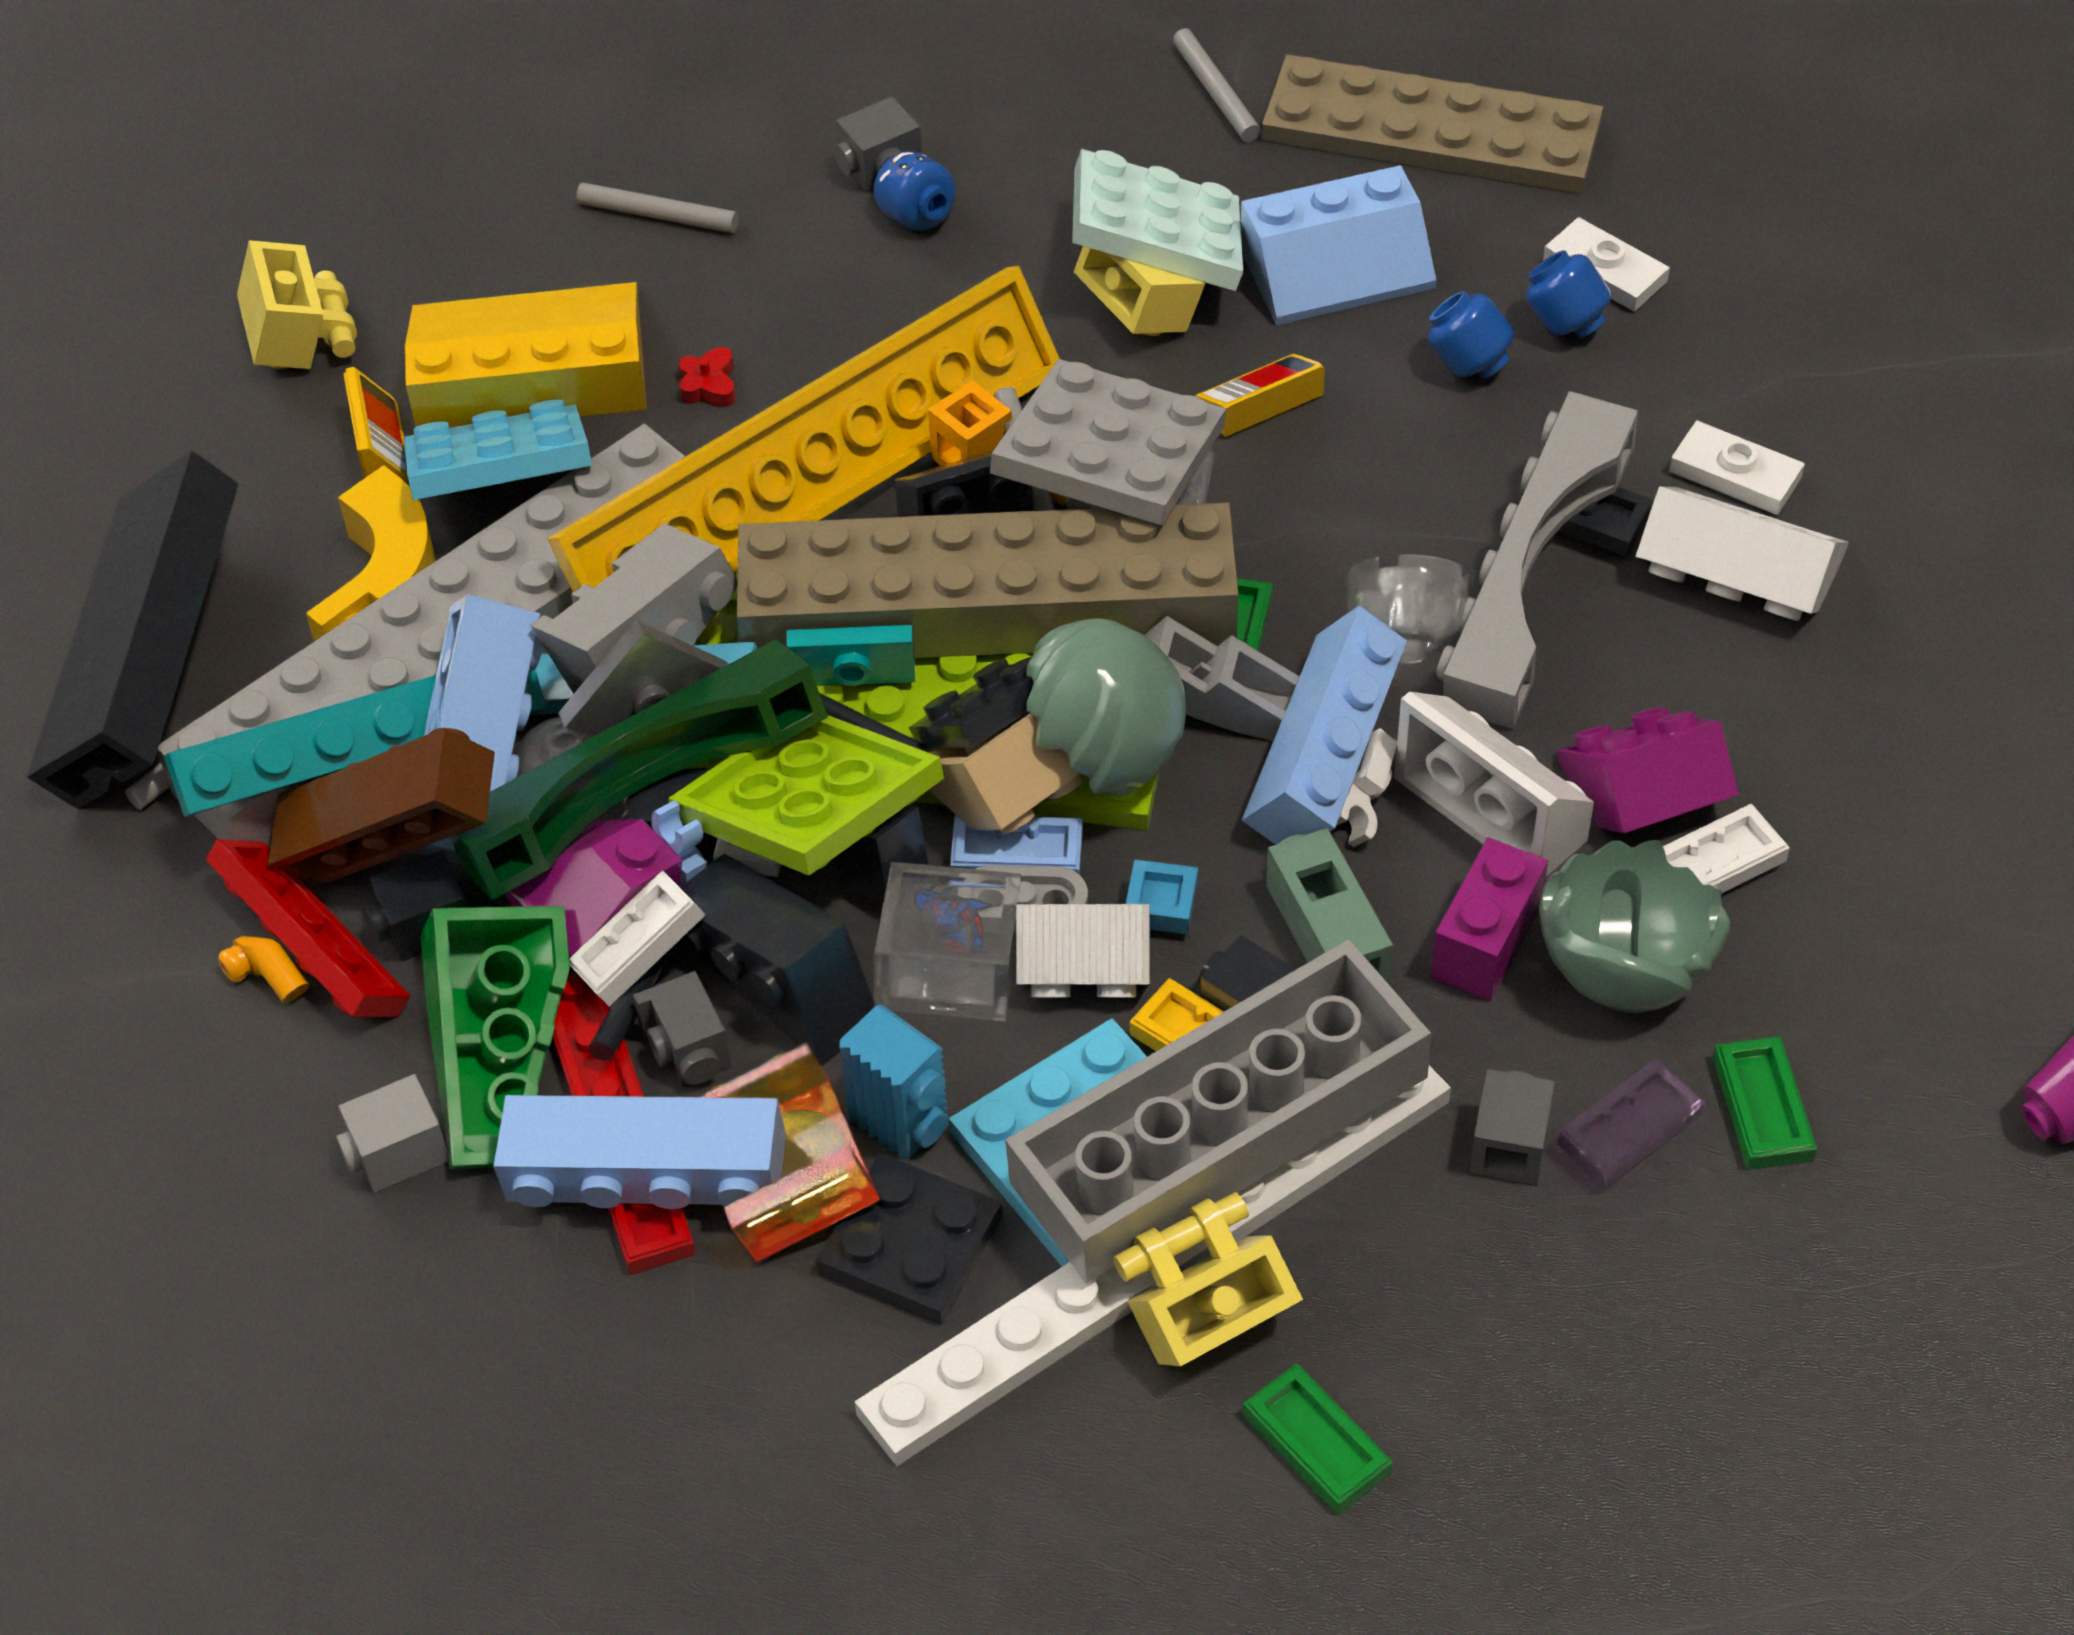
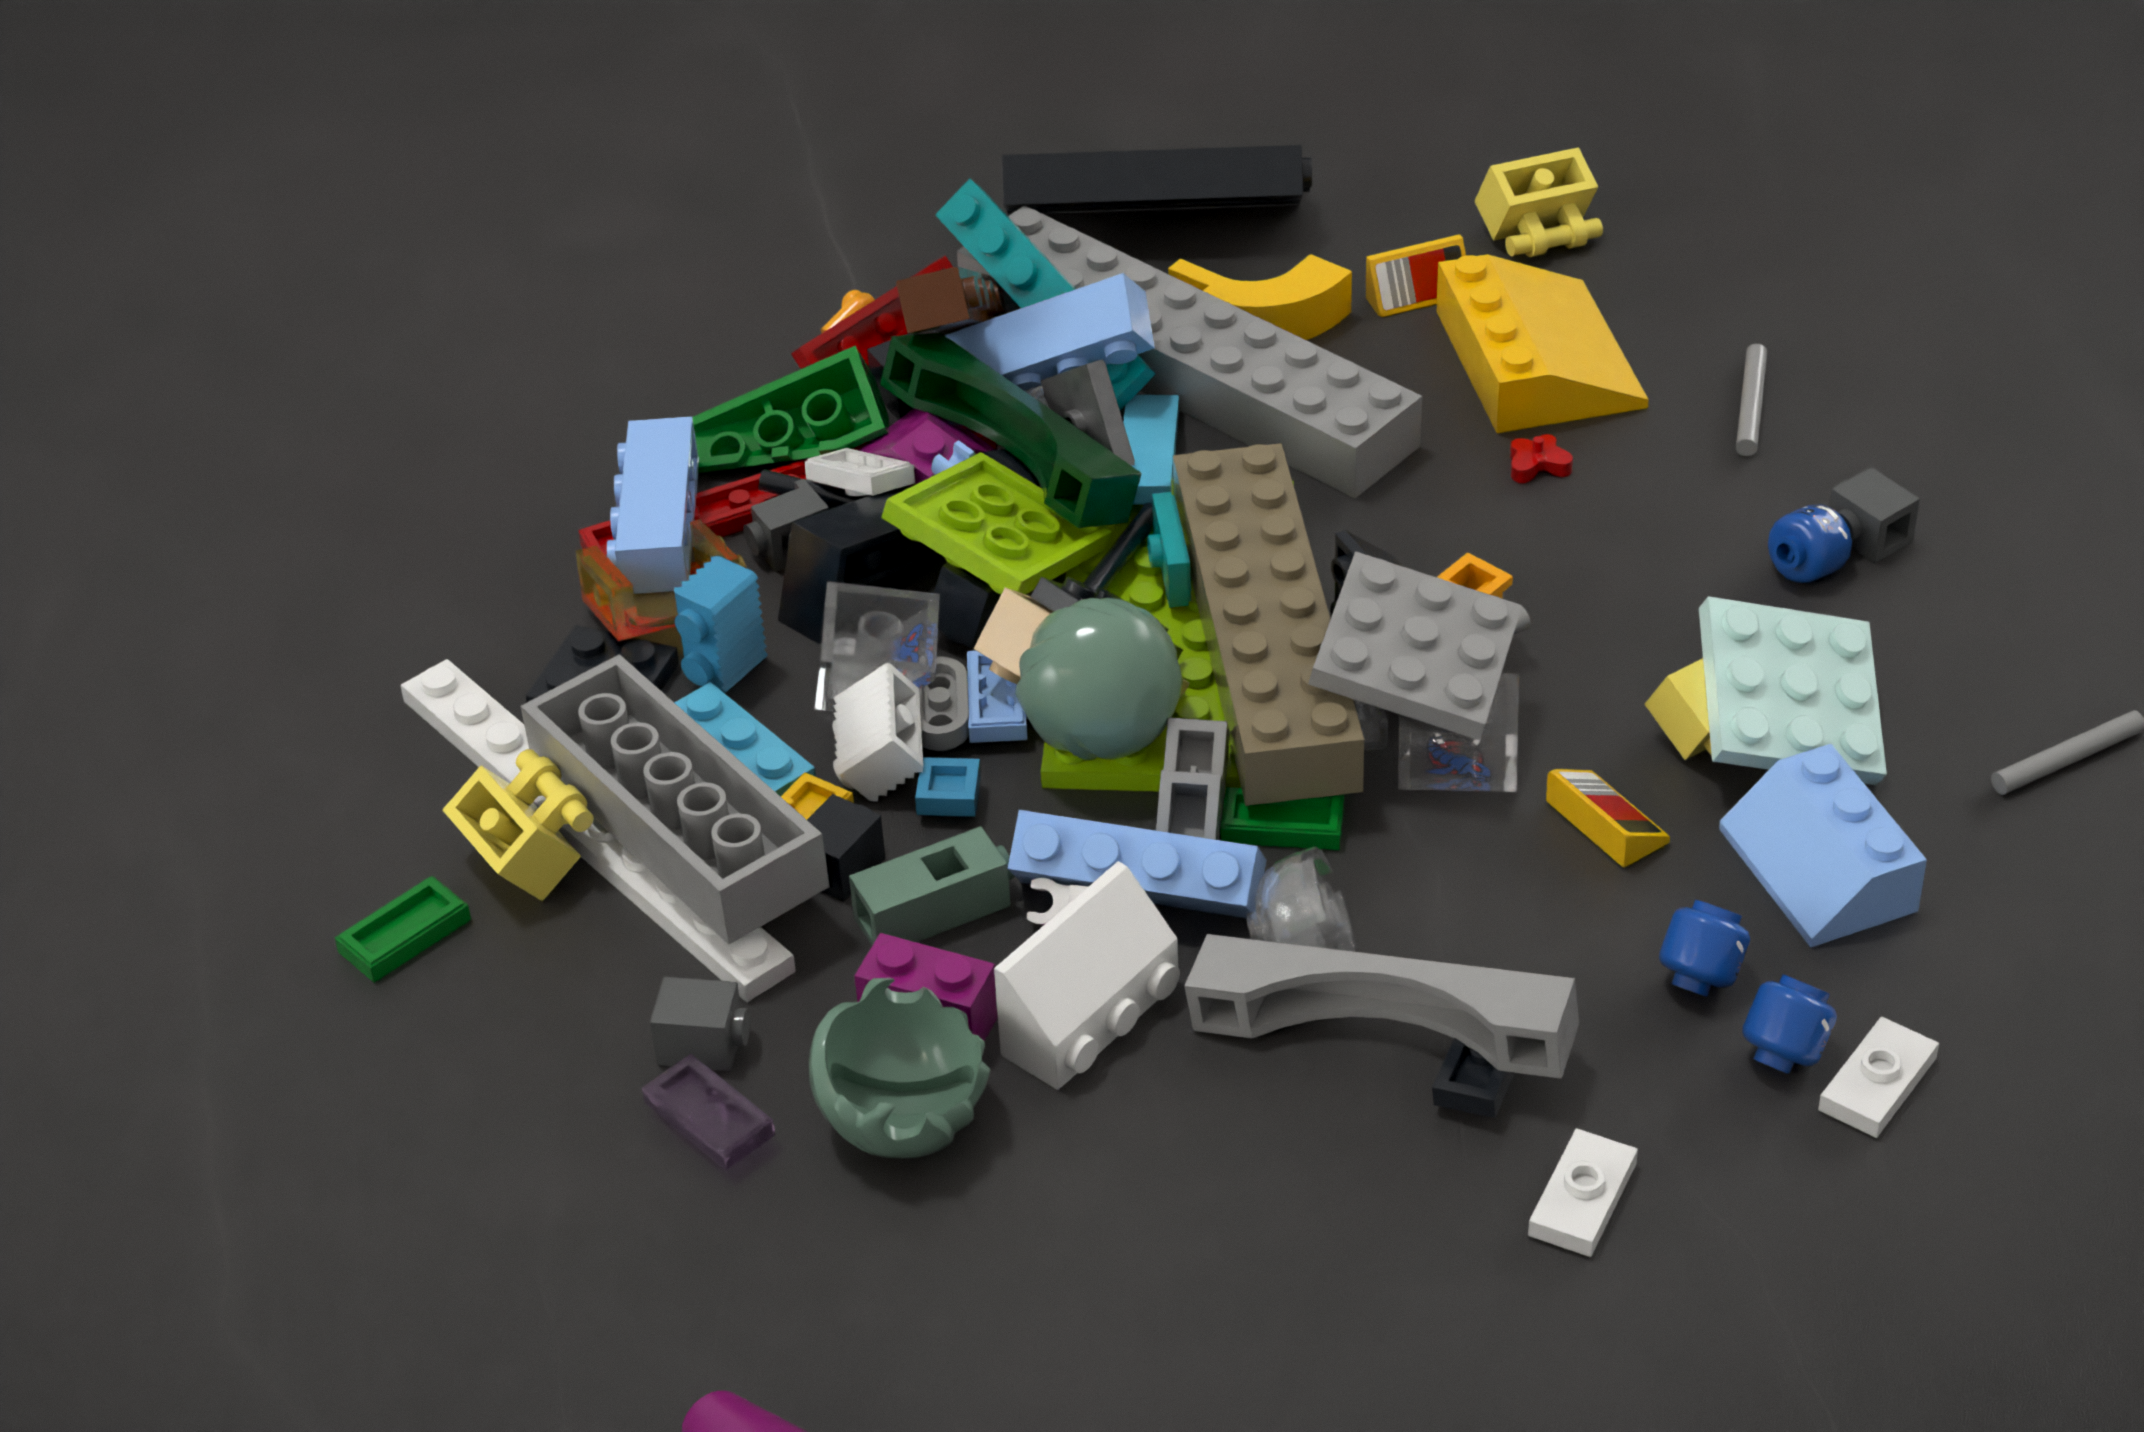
camera: 85 degrees right, 10 degrees down
(391, 1134) = (687, 387): light grey brick -> none
(495, 449) = (1382, 327): medium azure plate -> none
(661, 581) = (1170, 404): light grey wedge -> none
(828, 436) = (1423, 501): yellow plate -> none
(1433, 123) = (2068, 931): dark tan plate -> none
(1650, 768) = (1125, 1108): magenta slope -> none
(1729, 849) = (1026, 1171): white plate -> none
(1739, 552) = (1448, 1184): white slope -> none
(1764, 1103) = (741, 1217): green tile -> none

